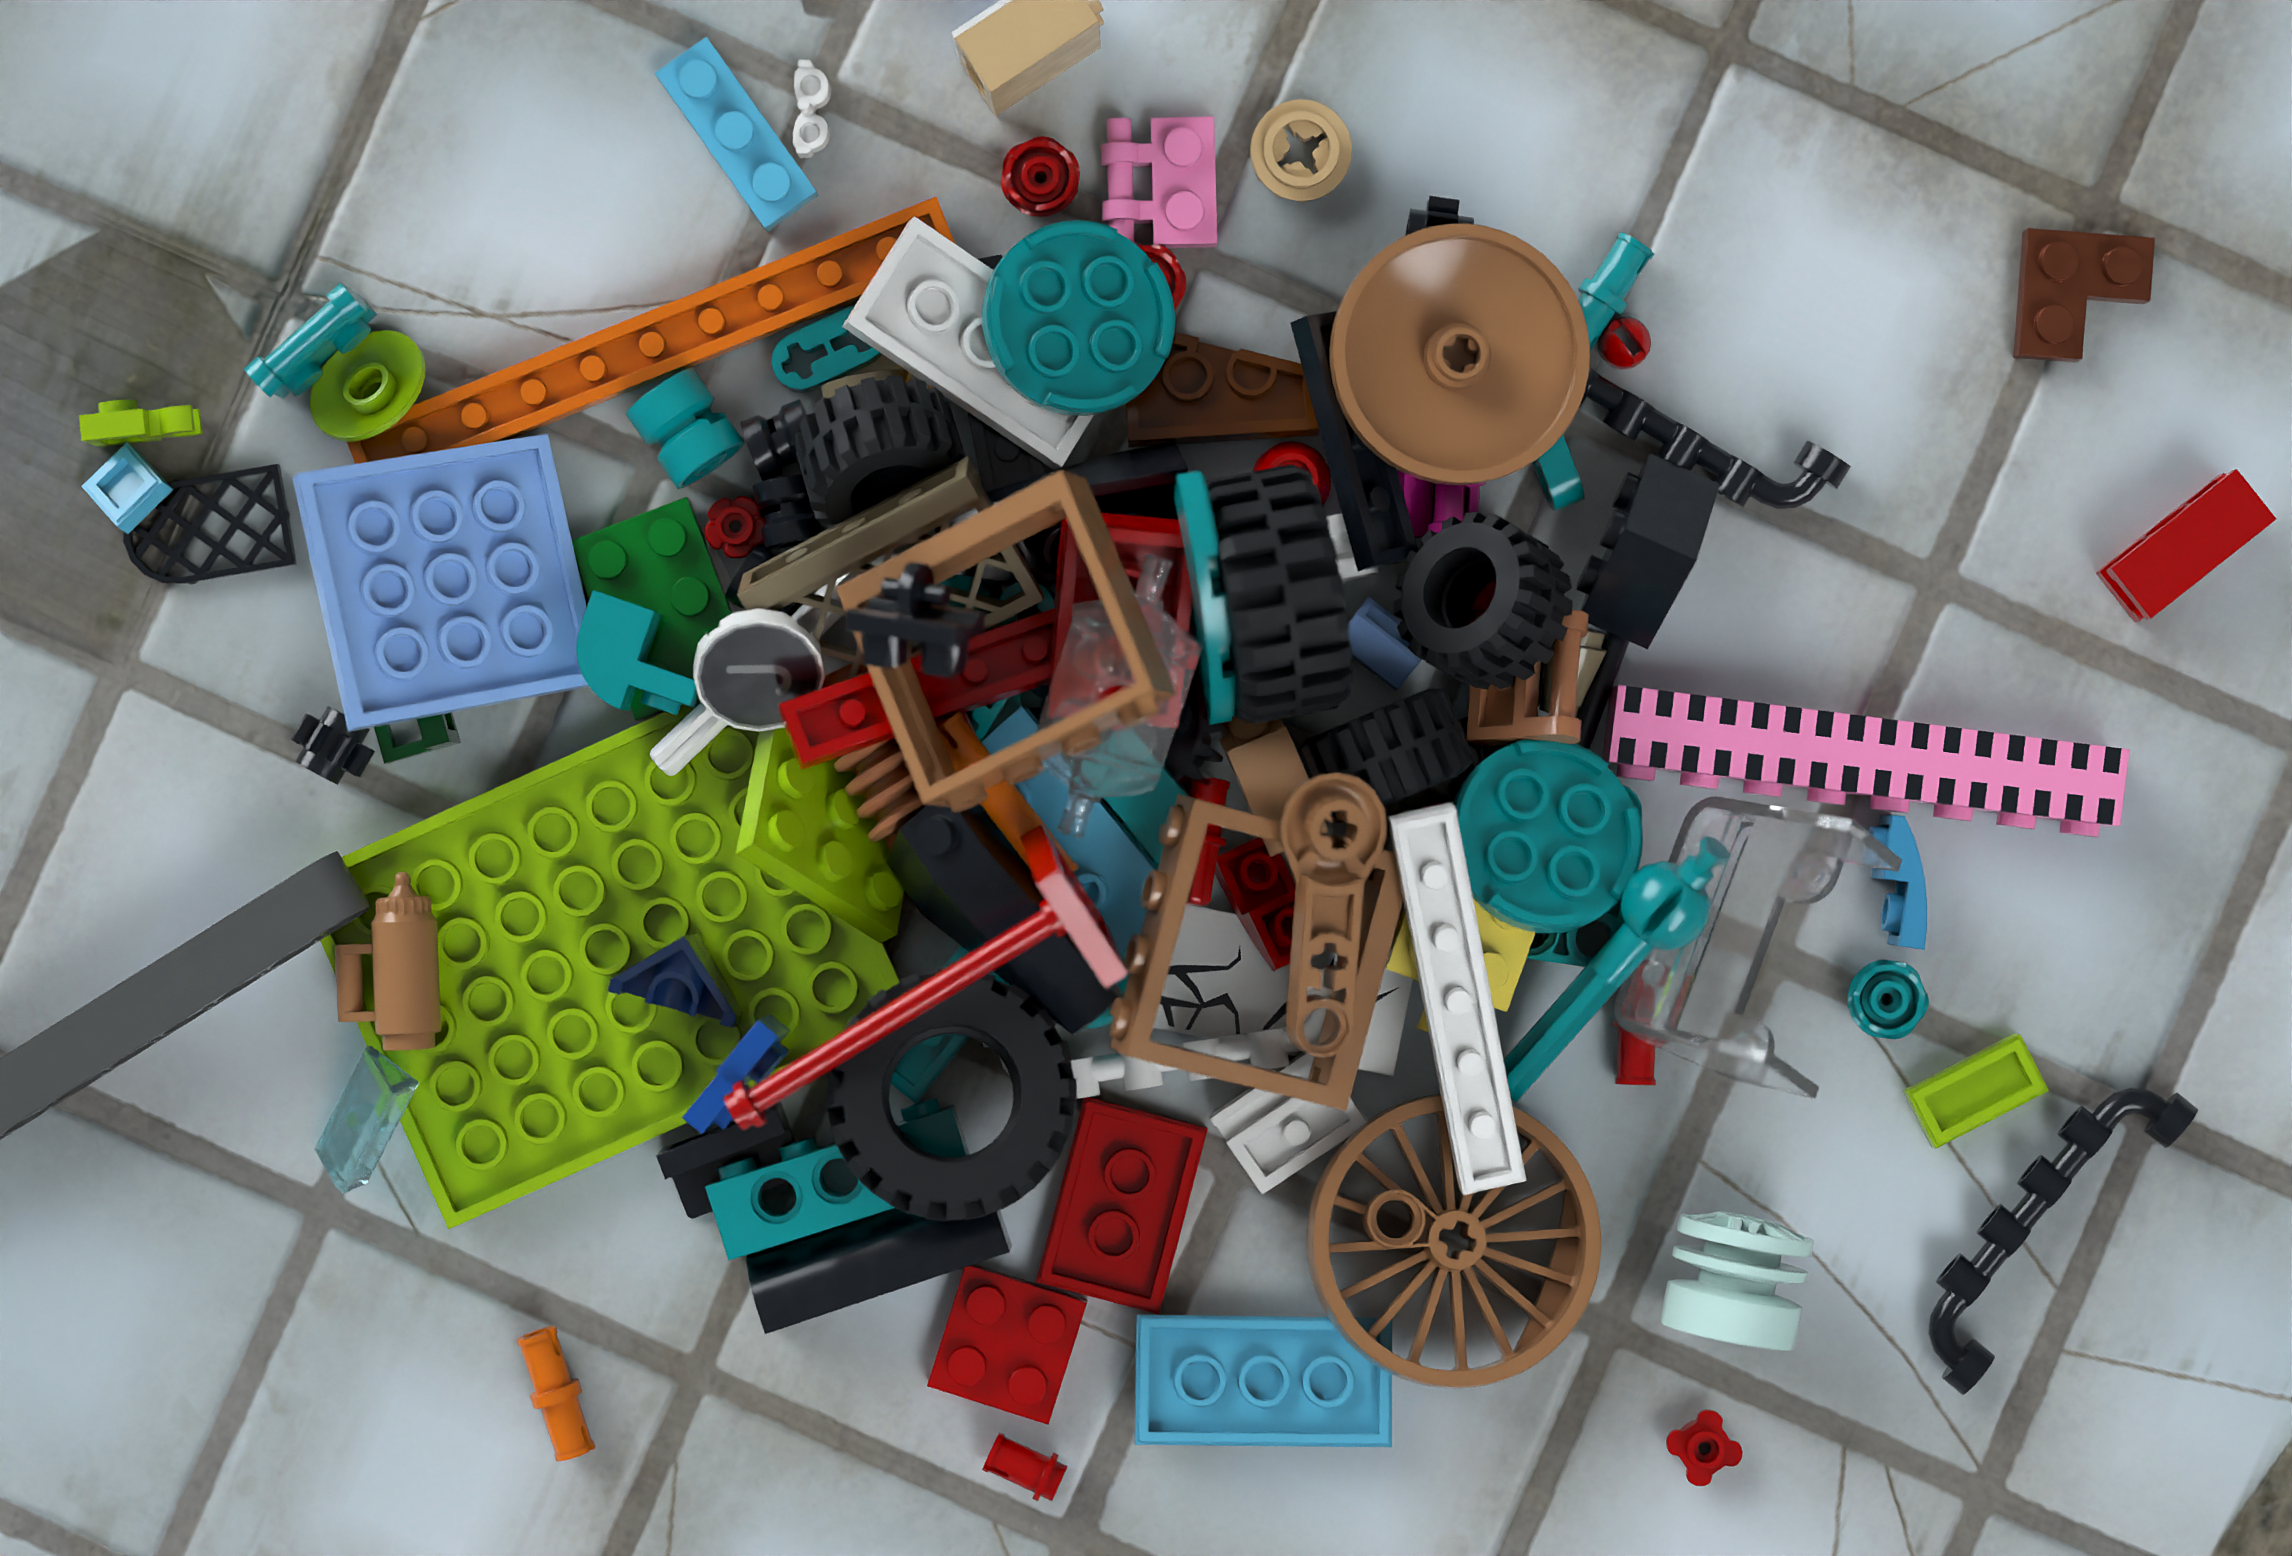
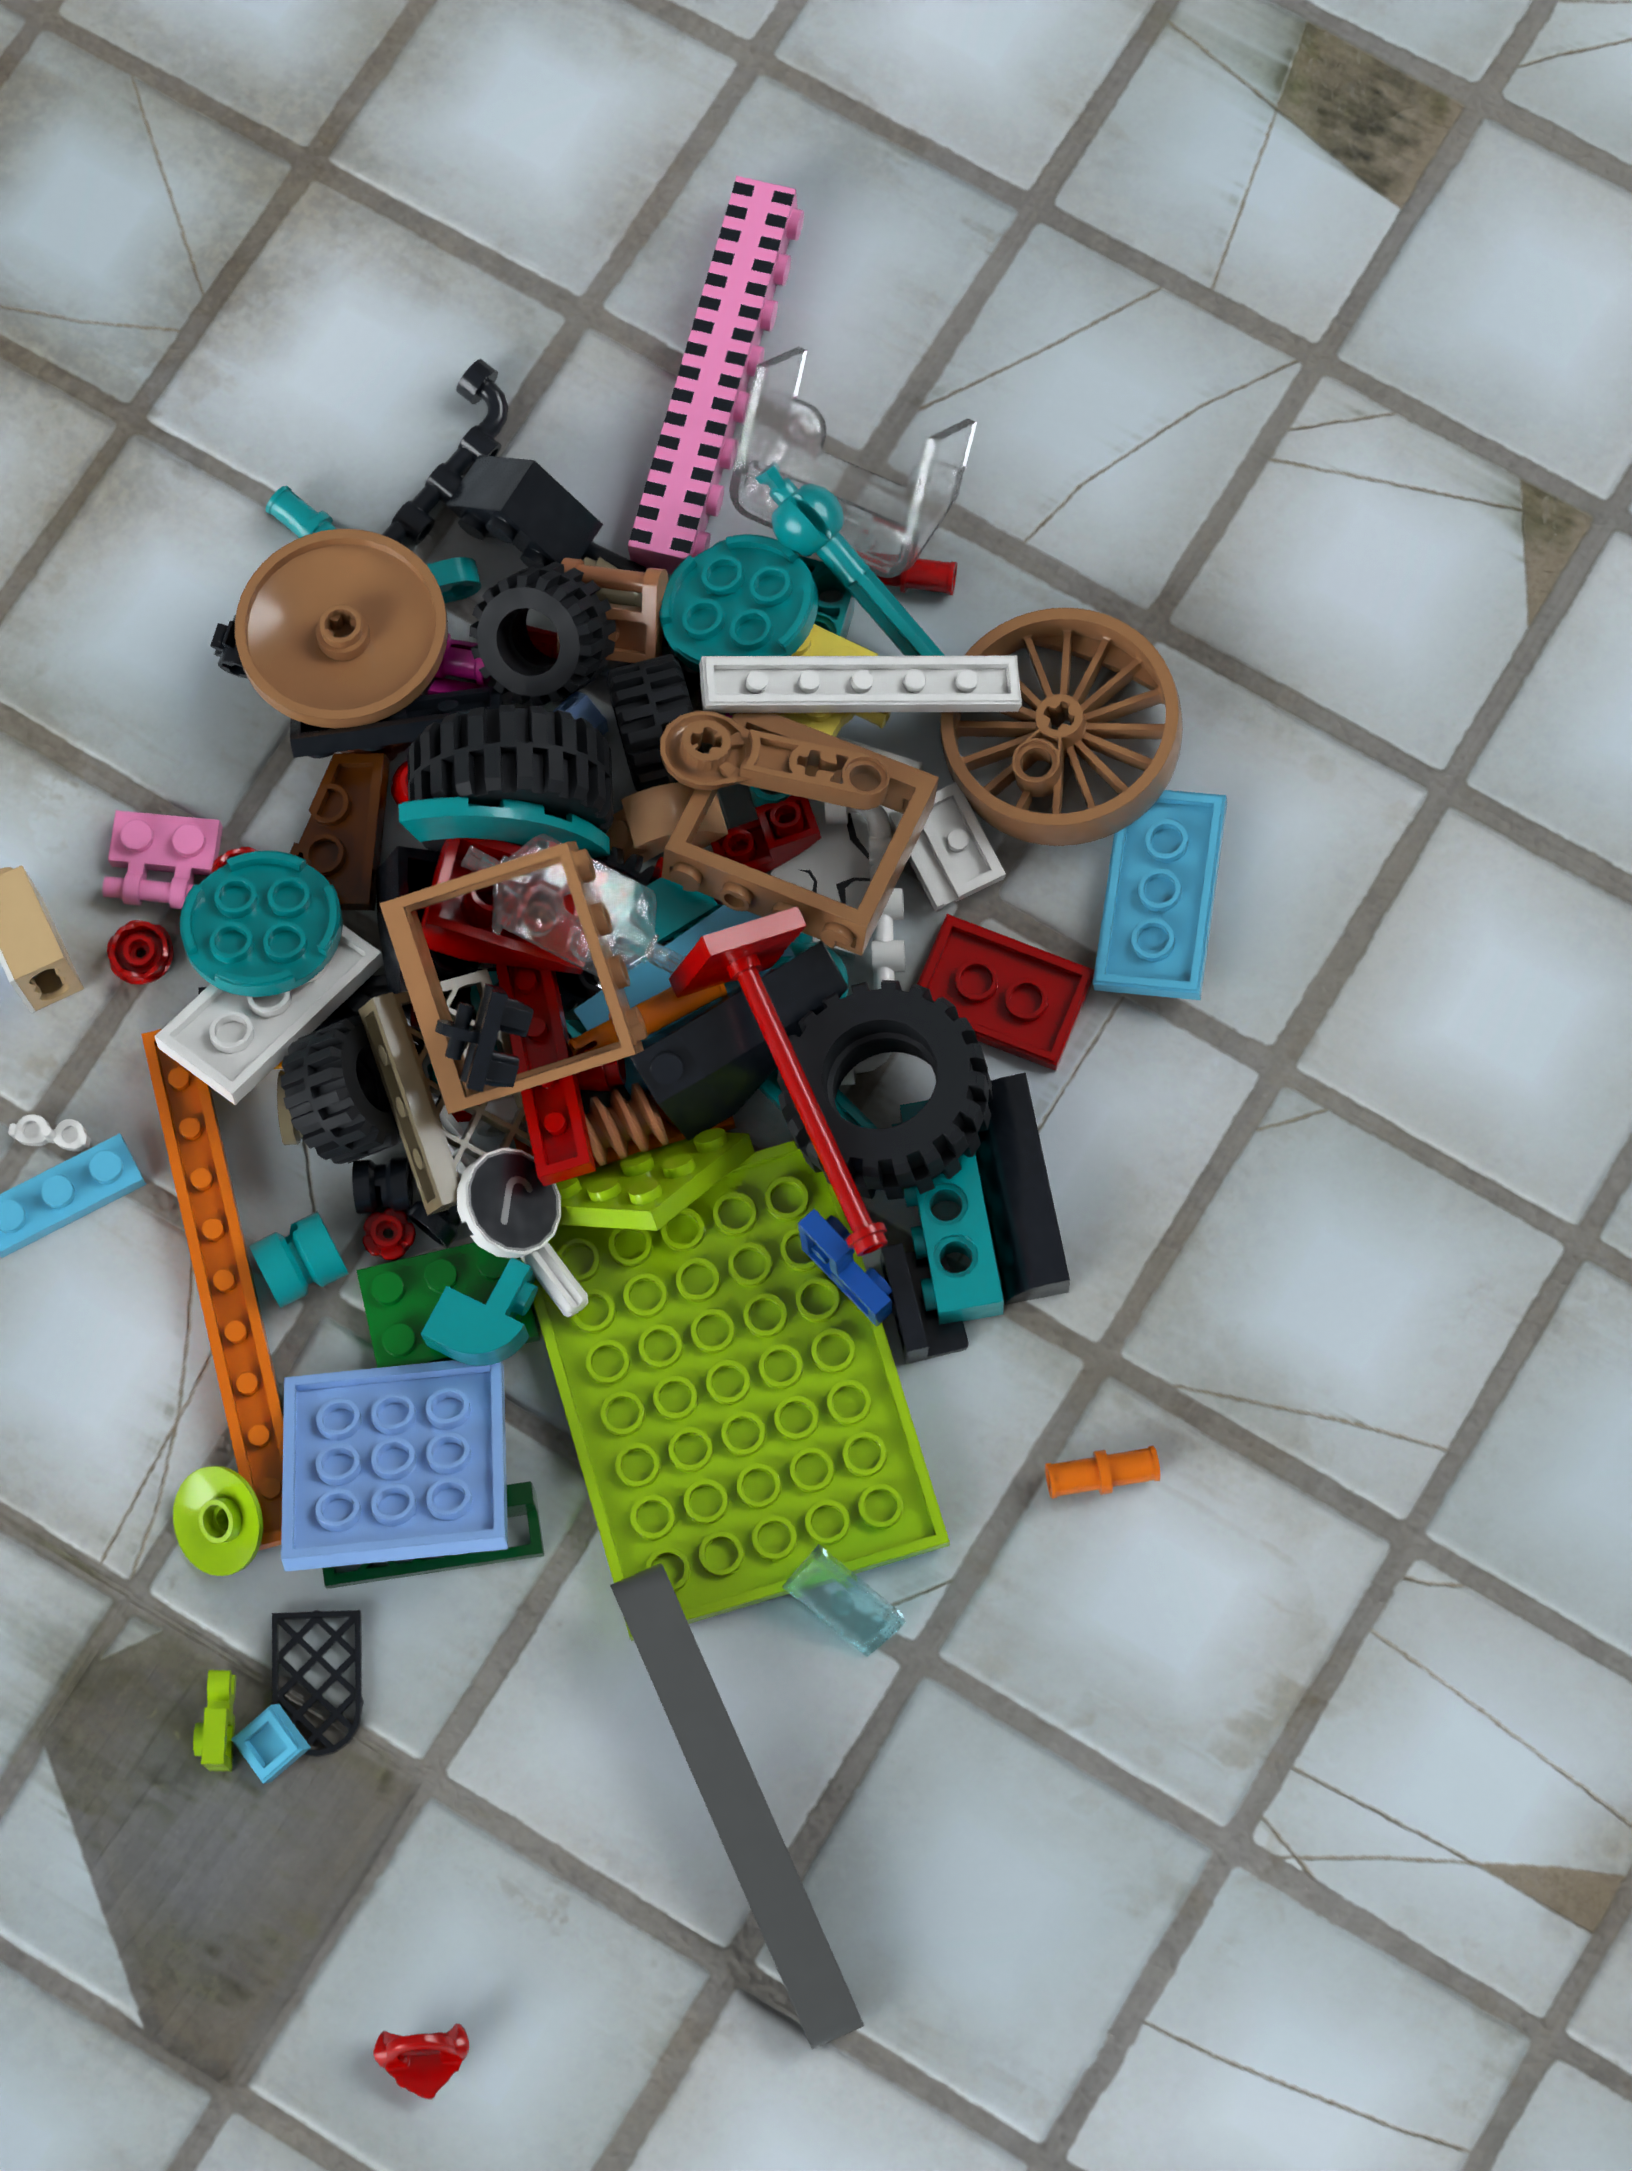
camera: 75 degrees left, 15 degrees down
(297, 361) = (165, 1542): teal plate -> none
(330, 747) = (520, 1588): black gear -> none
(403, 971) = (721, 1542): medium nougat piece -> none
(682, 979) = (761, 1305): dark blue slope -> none
(773, 439) = (321, 1186): black wheel -> none
(828, 368) = (241, 1144): teal beam -> none
(1007, 1343) = (1105, 1097): red plate -> none
(1025, 1467) = (1211, 1092): red pin -> none
(1307, 122) = (133, 741): tan gear -> none
(1615, 351) = (363, 520): red hinge -> none
(1708, 1429) = (1251, 574): red plate -> none
(1737, 1281) = (1119, 510): light aqua wheel -> none
(1906, 910) = (838, 356): dark azure slope -> none
(1907, 1004) = (911, 366): teal plate -> none
(1975, 1090) = (994, 327): lime tile -> none
(2044, 1186) = (1107, 313): black bar -> none
(2064, 272) = (358, 192): copper plate -> none
(2186, 545) = (584, 123): red piece -> none

